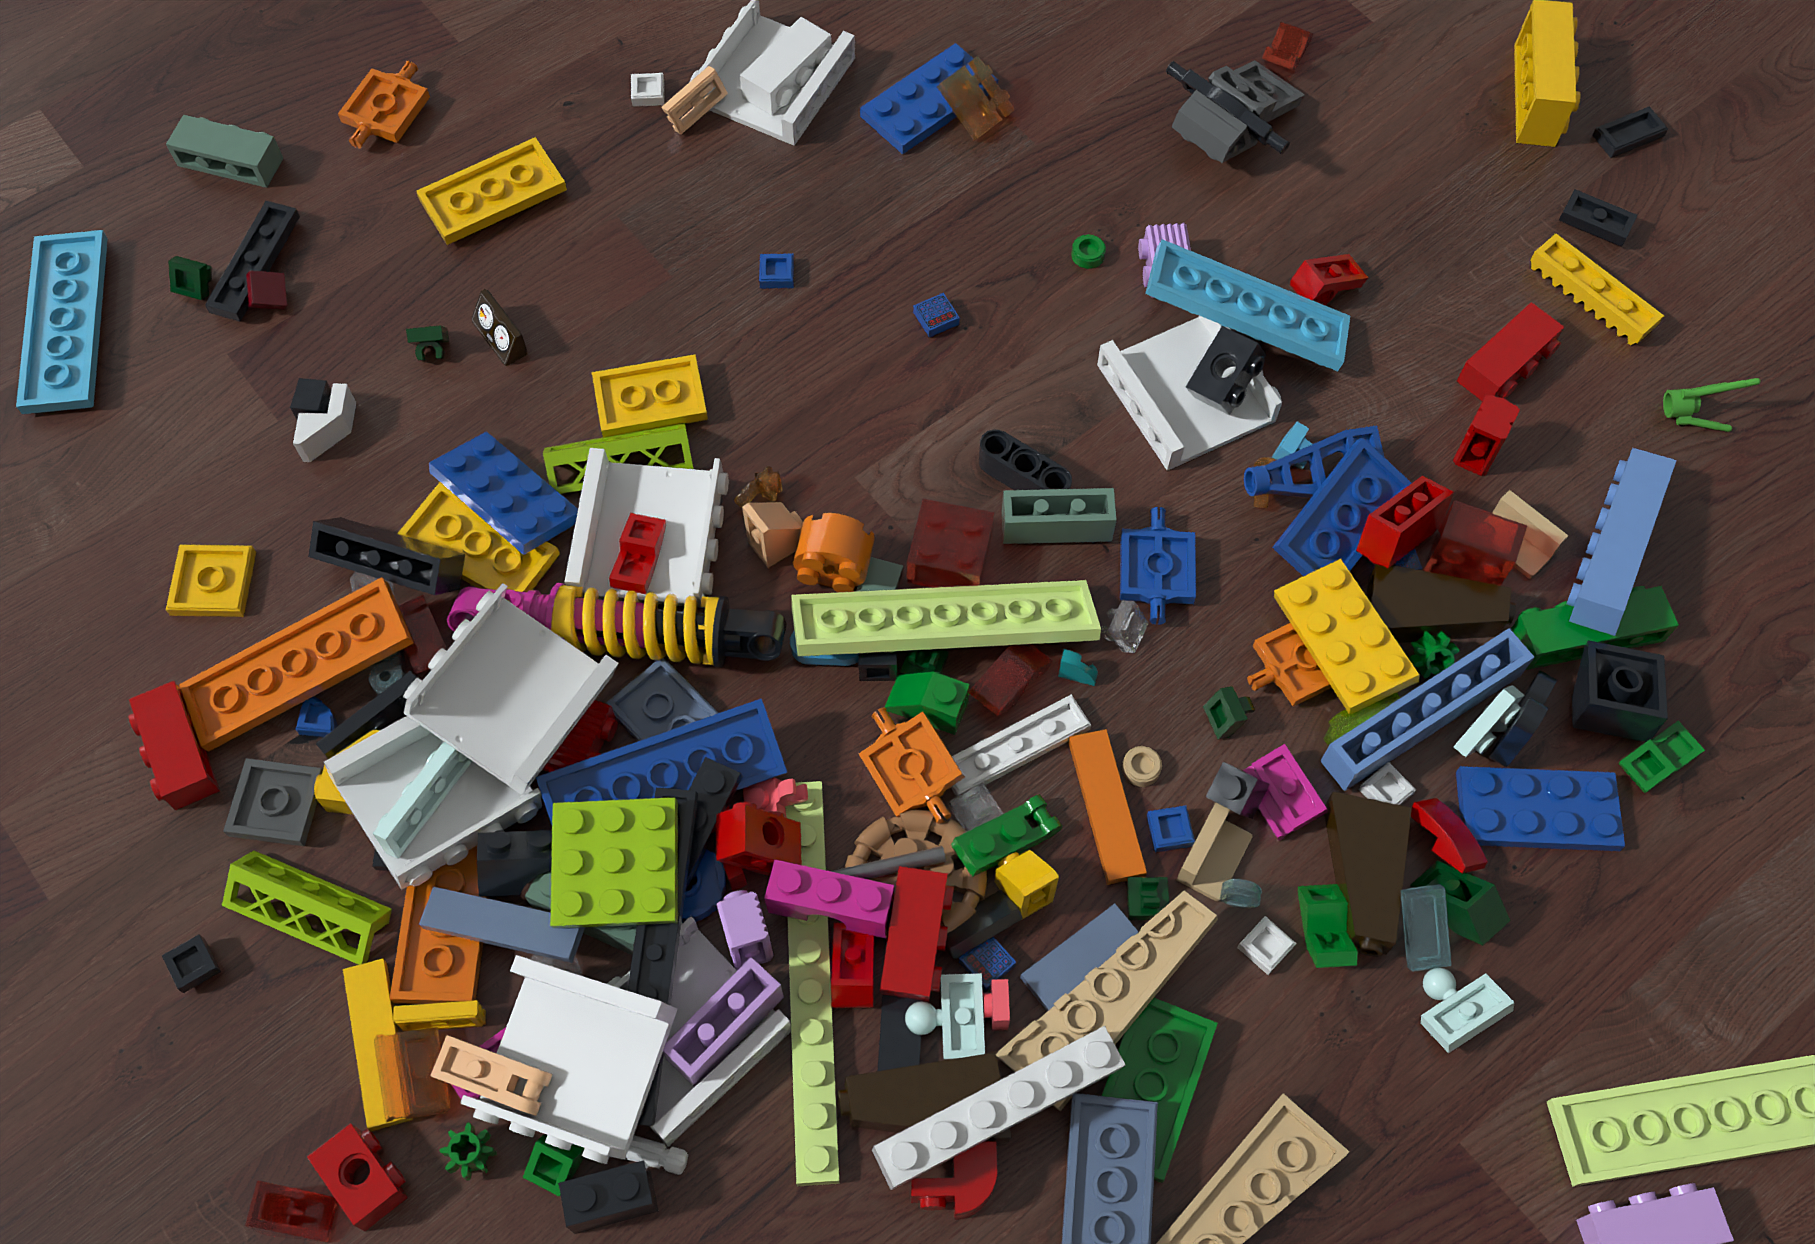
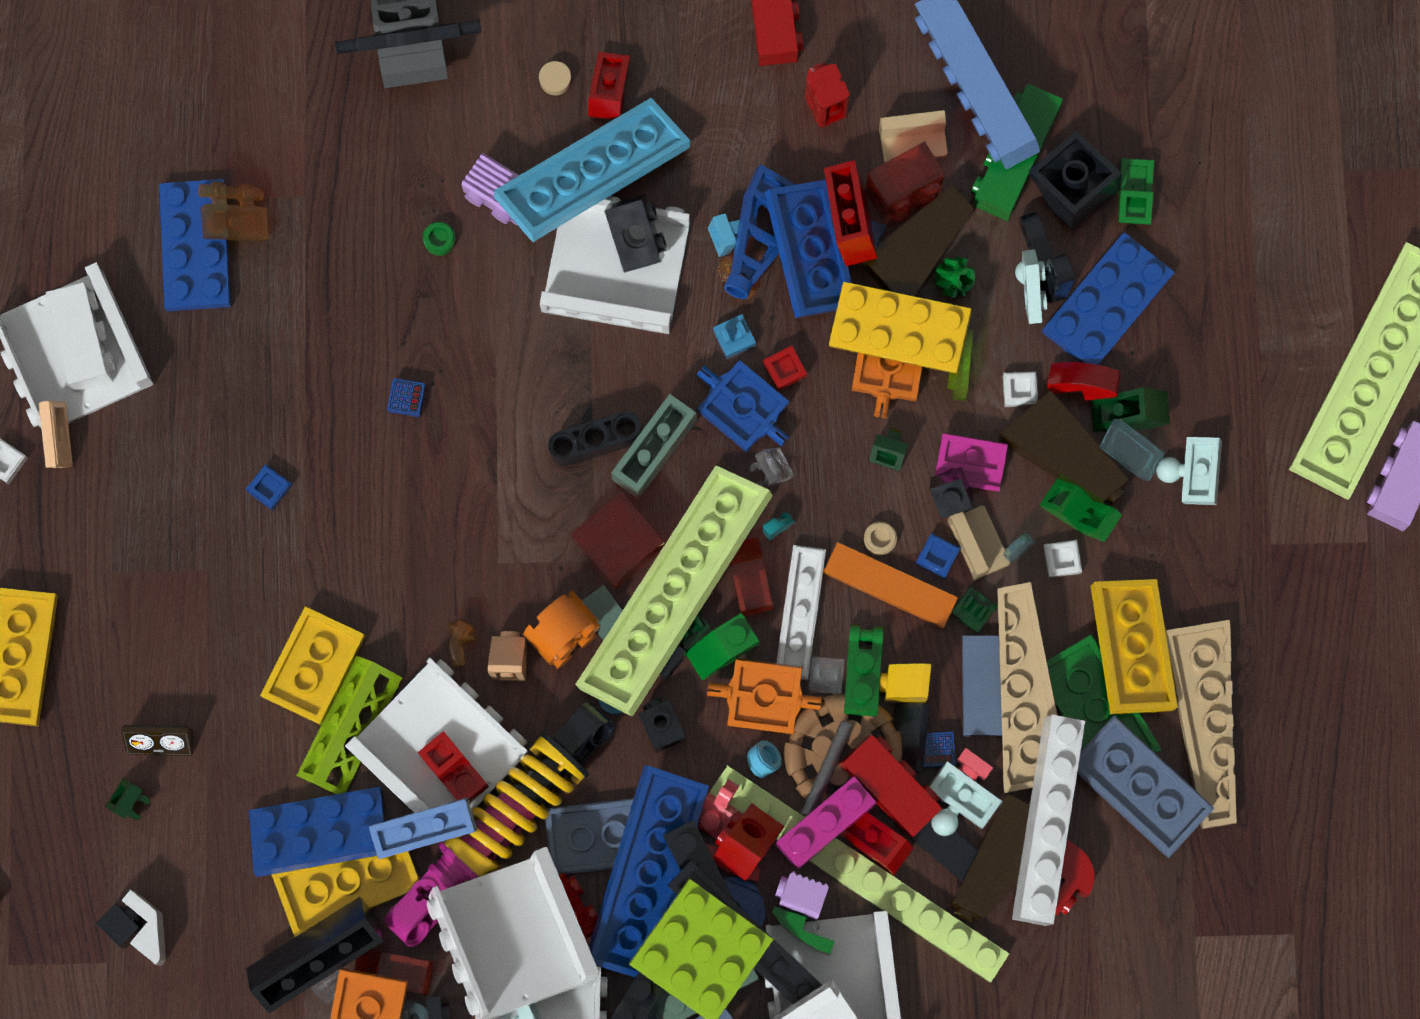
camera: 50 degrees left, 15 degrees up
(560, 554) = (422, 828): none -> medium blue plate
(711, 950) = (794, 923): none -> green slope
(723, 1022) = (856, 954): lavender brick -> none
(813, 698) = (661, 725): none -> black brick
(853, 808) = (763, 759): none -> medium azure tile
(1212, 519) = (734, 336): none -> dark azure tile
(1221, 575) = (784, 368): none -> red plate
(1240, 1073) = (1133, 646): none -> yellow plate
(1297, 242) = (555, 78): none -> tan tile
(1426, 709) = (991, 317): medium blue brick -> none

